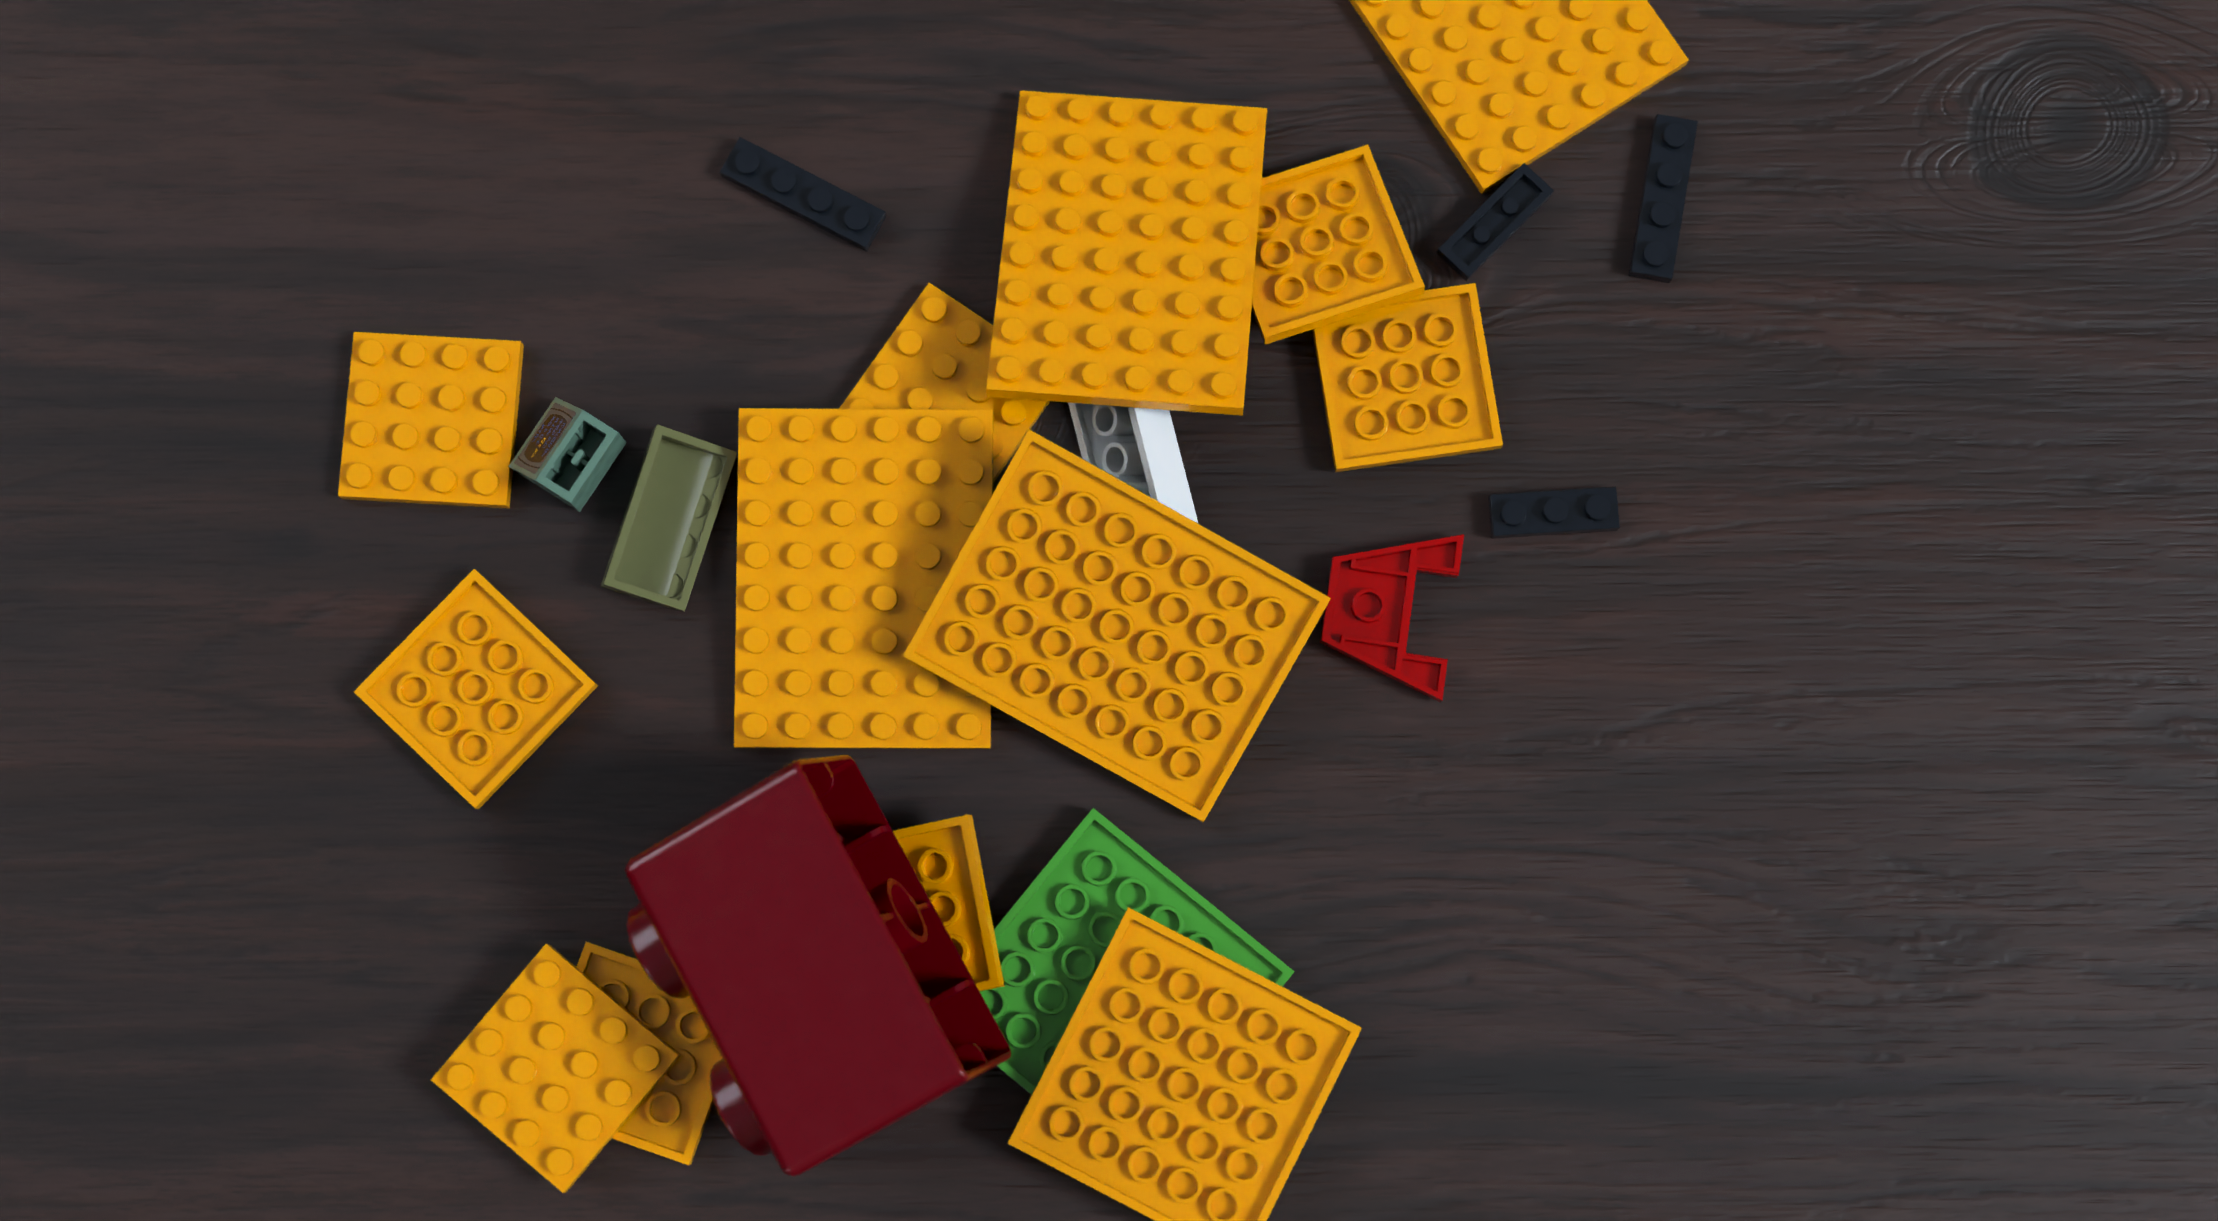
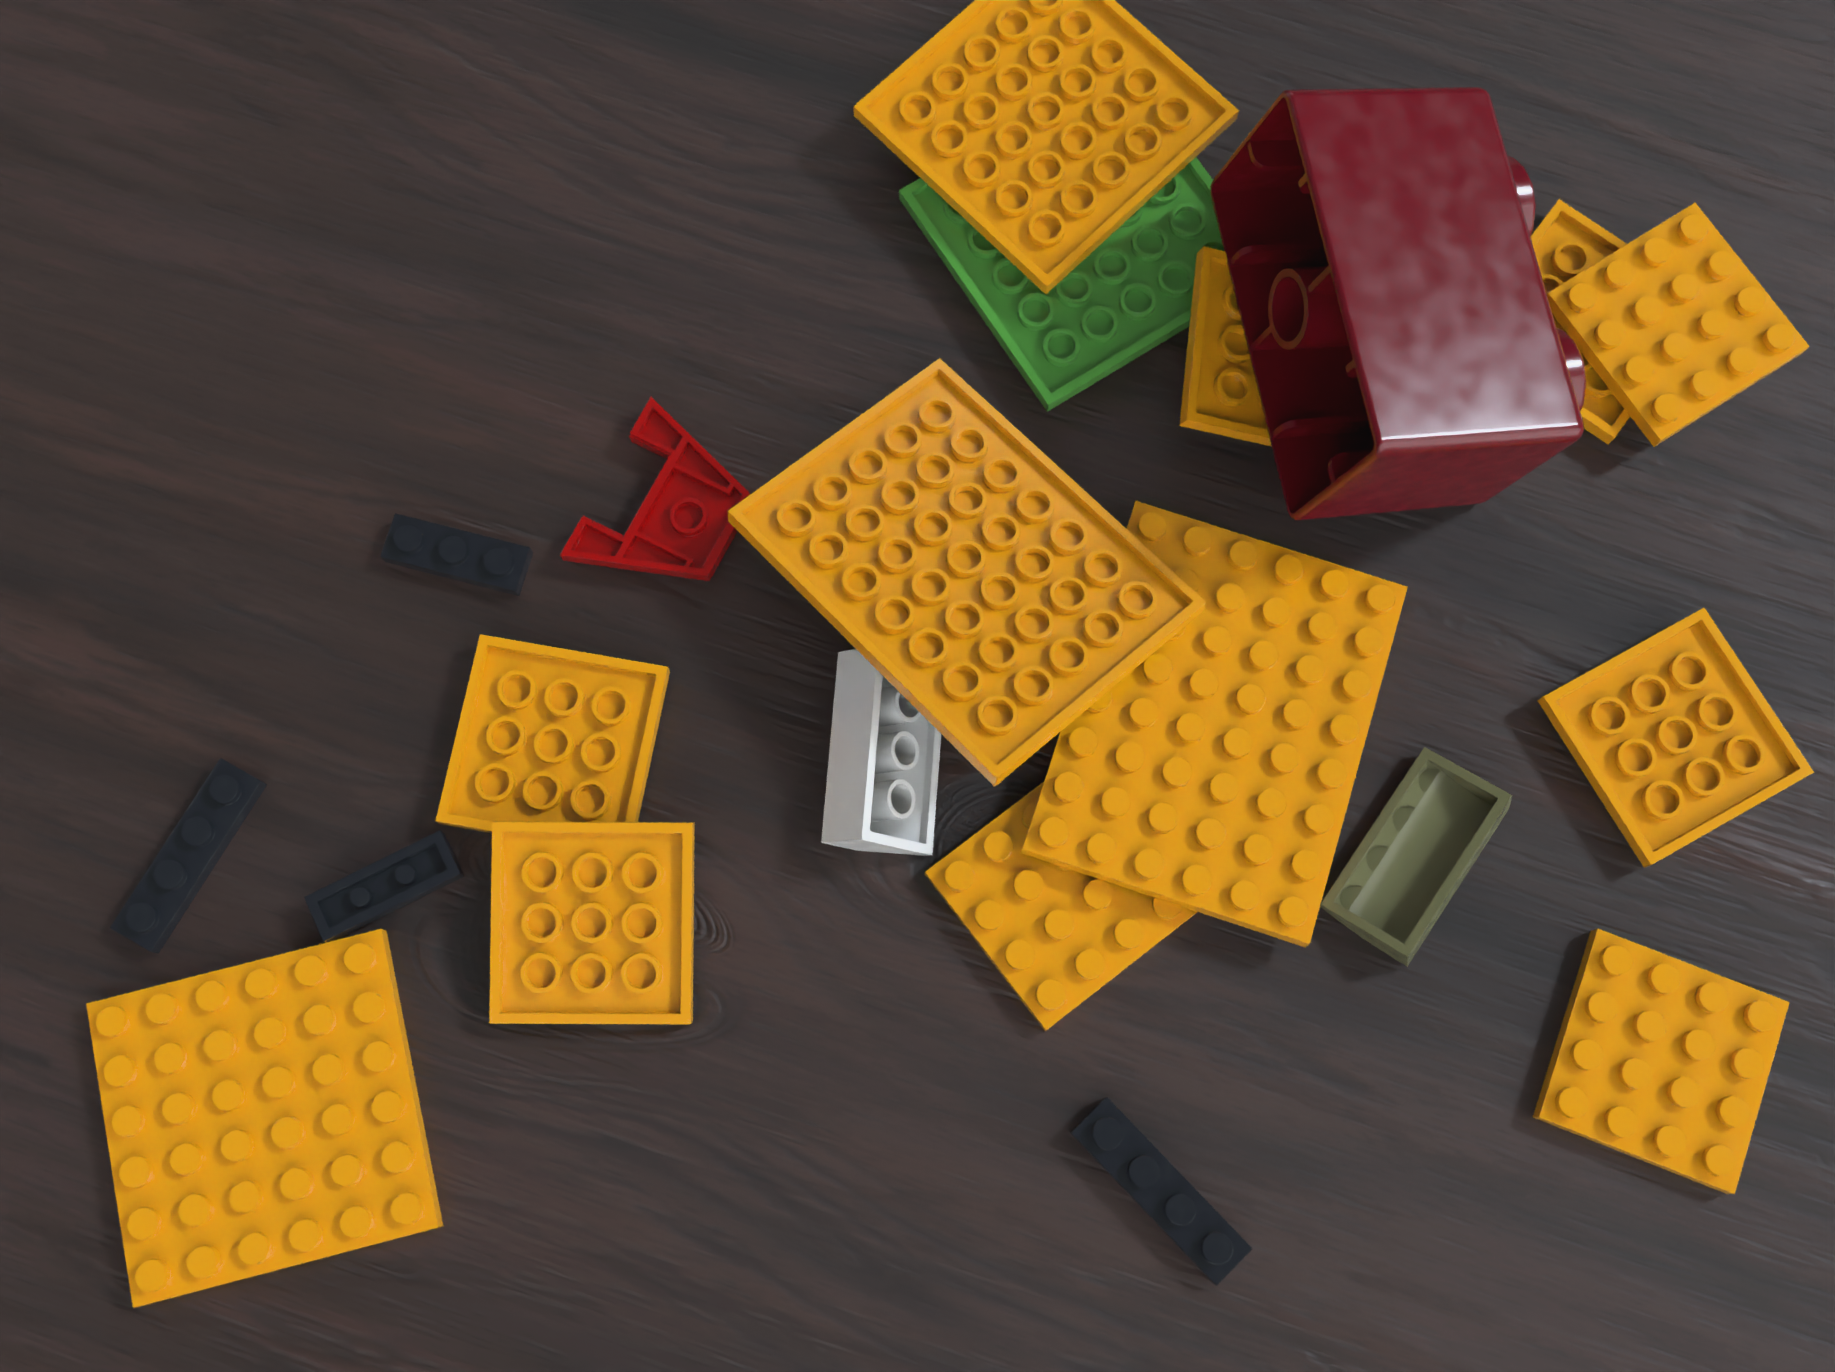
camera: 160 degrees left, 5 degrees down
(568, 453) = (1517, 961): sand green slope -> none
(1128, 253) = (807, 980): light orange plate -> none

